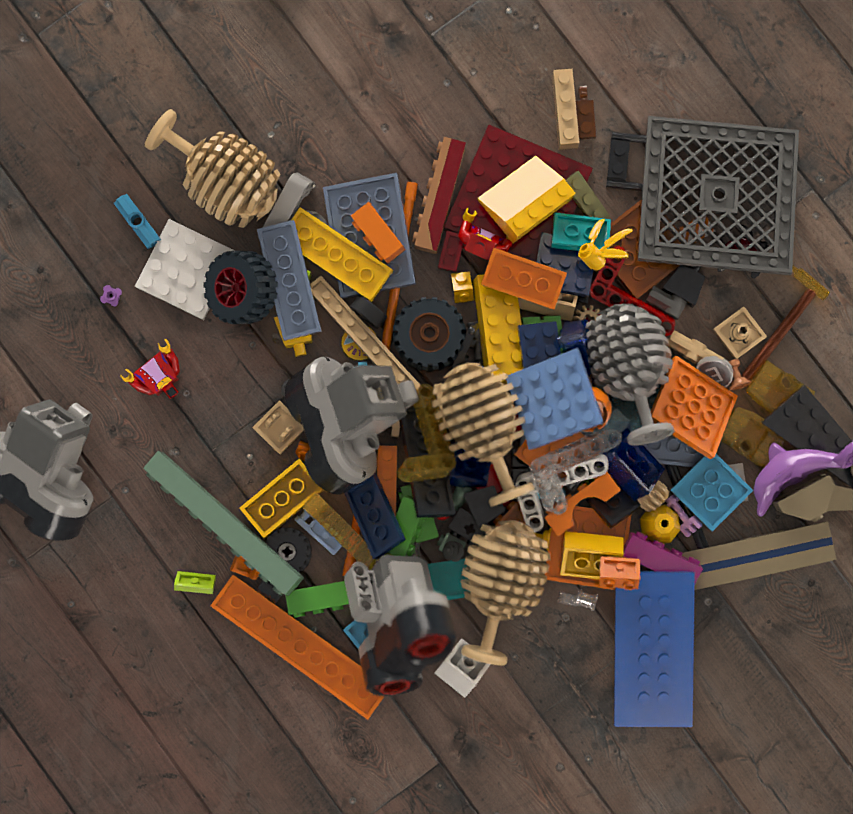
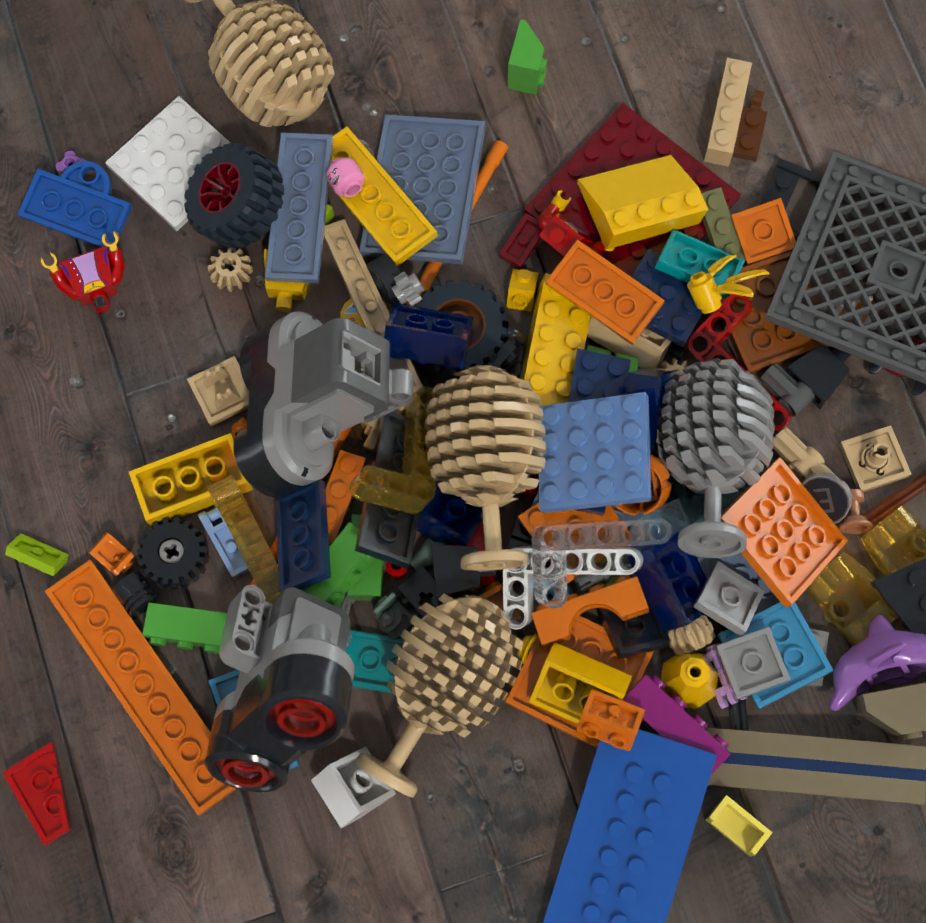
camera: 20 degrees right, 10 degrees down
(127, 325) = (76, 205): none -> blue plate
(144, 229) = (135, 75): dark azure piece -> none
(223, 523) = (102, 488): sand green brick -> none
(253, 331) = (224, 277): none -> tan gear
(258, 739) = (40, 793): none -> red wing
(289, 199) = (340, 110): light grey beam -> none
(314, 249) = (345, 177): none -> bright pink head
(377, 233) = (433, 183): orange brick -> none
(387, 318) = (408, 288): none -> light grey gear
(413, 119) = (526, 61): none -> bright green slope
(413, 348) = (428, 335): none -> clear blue slope
(439, 196) = (530, 169): brick -> none
(581, 599) = (548, 746): clear connector -> none
(617, 192) = (764, 231): none -> orange plate
(671, 465) = (729, 598): none -> light grey plate
(699, 503) = (752, 663): none -> light grey plate
(721, 611) = (738, 826): none -> light yellow panel

